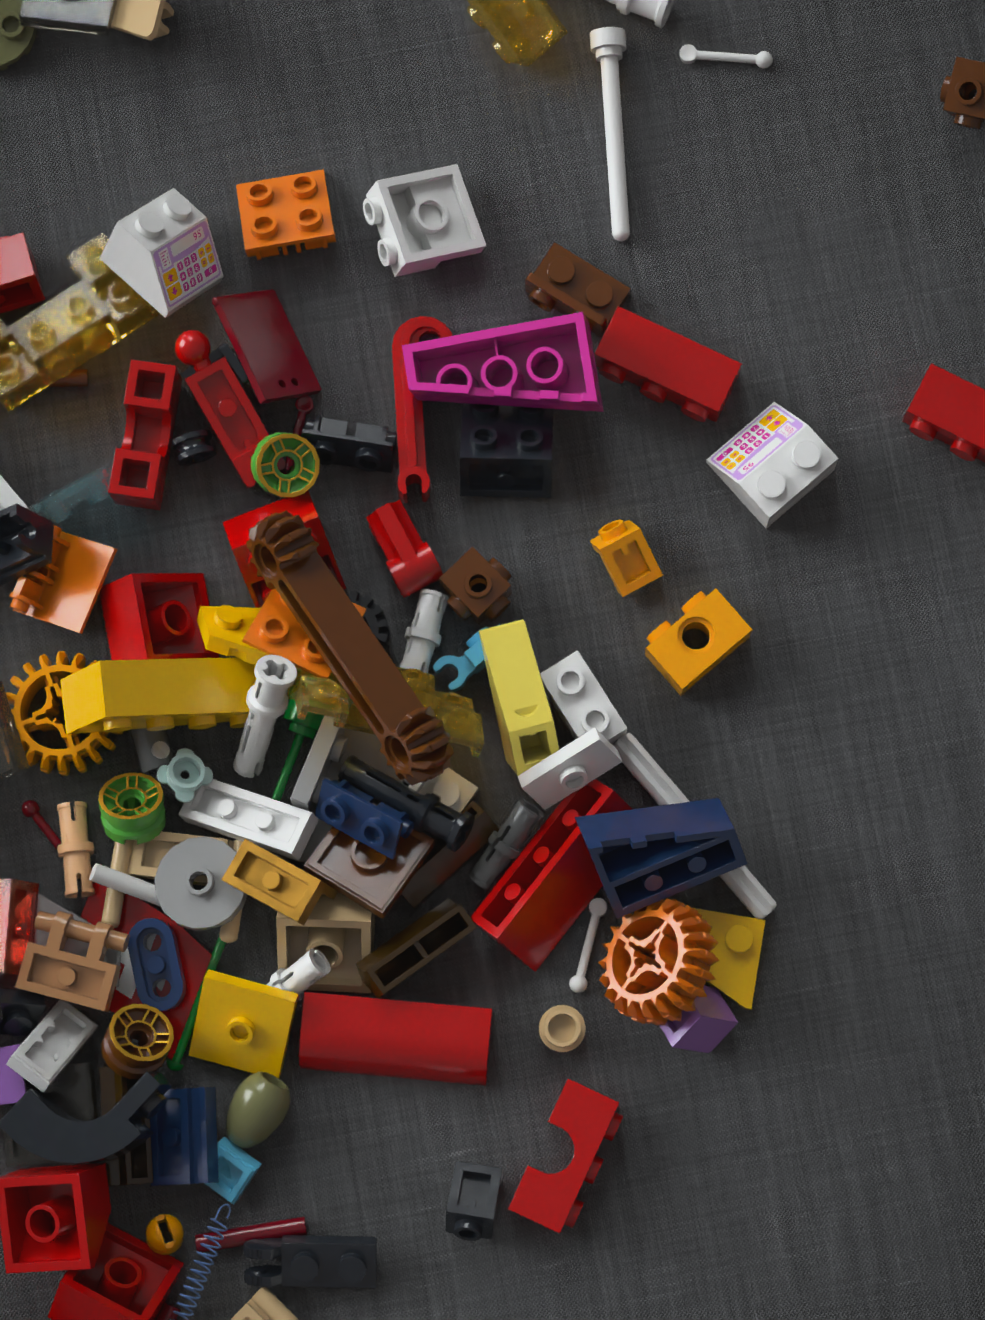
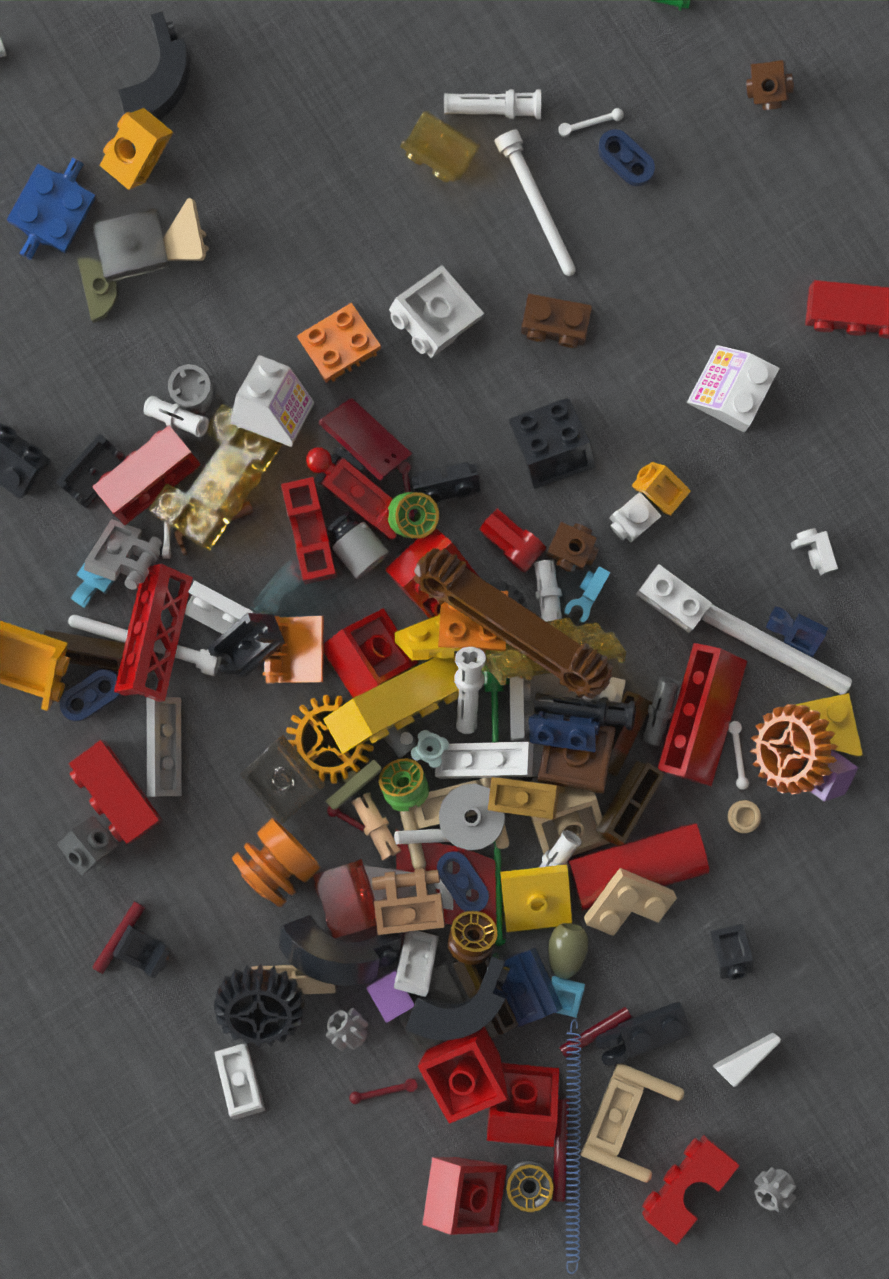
camera: 30 degrees left, 5 degrees up
(52, 239) = (192, 422): none -> white pin
(69, 782) = (354, 783): none -> olive plate
(71, 198) = (191, 388): none -> light grey piece
(154, 1236) = (534, 1059): light orange hinge -> none
(201, 485) = (360, 550): none -> light grey piece
(366, 1067) = (625, 895): none -> tan plate
(409, 409) = (474, 437): red piece -> none
(512, 365) = (542, 388): dark pink wedge -> none
(518, 696) = (633, 612): light yellow slope -> none
(569, 768) = (685, 645): white plate -> none
(574, 582) = (634, 518): none -> white bracket
(587, 1120) = (784, 928): red arch -> none
(660, 850) = (767, 676): dark blue wedge -> none
(666, 365) = (637, 348): red brick -> none
(684, 665) = (744, 511): light orange brick -> none
(742, 813) = (799, 633): none -> dark blue plate
(752, 120) = (628, 157): none -> dark blue plate
(798, 725) = (821, 554): none -> white bracket

